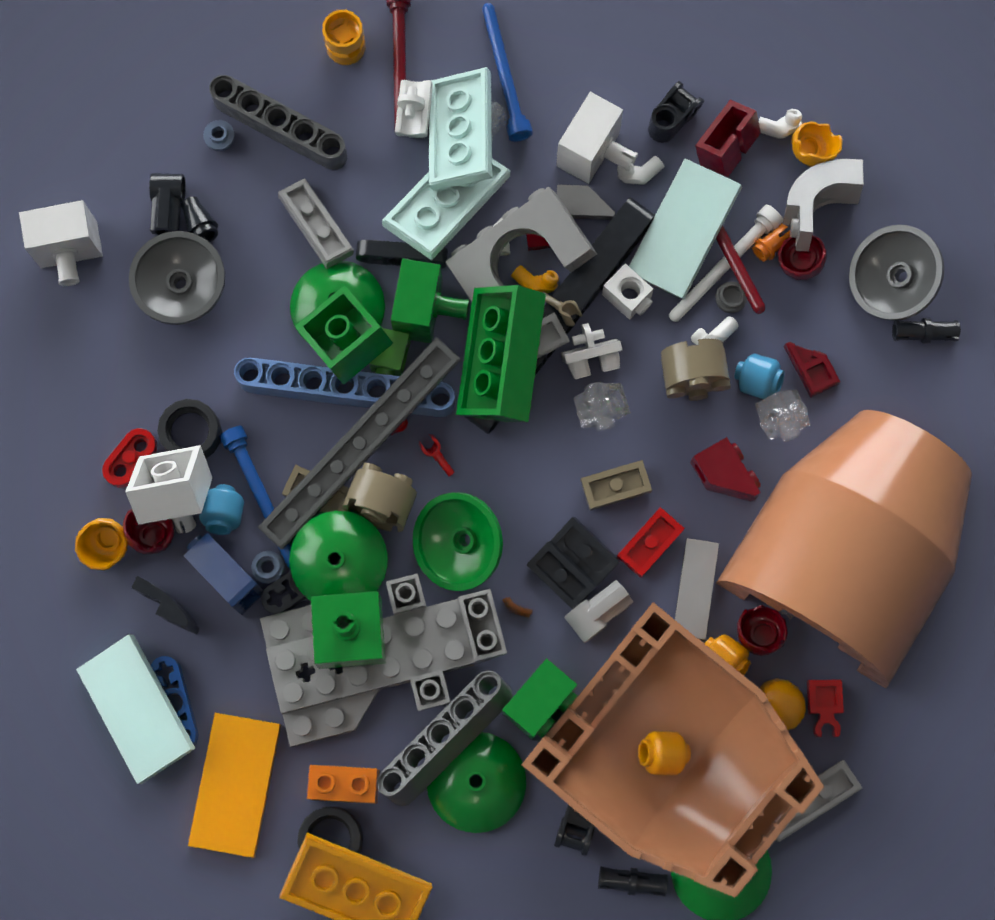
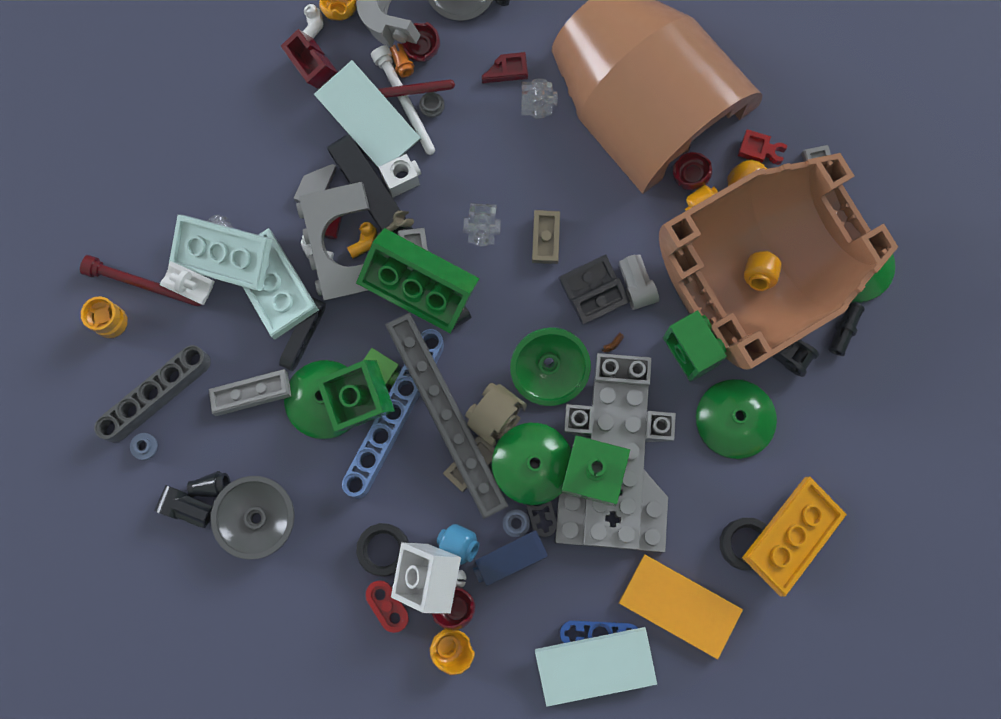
camera: 70 degrees left, 0 degrees up
(61, 237) = (179, 602): white brick -> none
(169, 608) = (530, 609): black slope -> none
(235, 441) = (406, 515): blue piece -> none
(343, 784) = (709, 518): orange brick -> none
(420, 301) = (349, 329): green brick -> none
(428, 742) = (698, 441): dark grey beam -> none
(437, 455) = (471, 362): red hand -> none
(518, 126) = (235, 210): blue piece -> none
(578, 358) = (436, 228): white hips -> none
(592, 139) = (271, 156): white brick -> none
(643, 174) = (310, 136): white arm -> none
(650, 542) = (598, 227): red plate -> none
(676, 109) = (270, 91): black piece -> none
(695, 369) = (480, 146): dark tan brick -> none
(696, 586) = (639, 206): light grey tile -> none
(721, 332) = (458, 123): white arm -> none
(723, 471) = (563, 155): dark red slope -> none
(759, 376) = (501, 105): dark azure head -> none

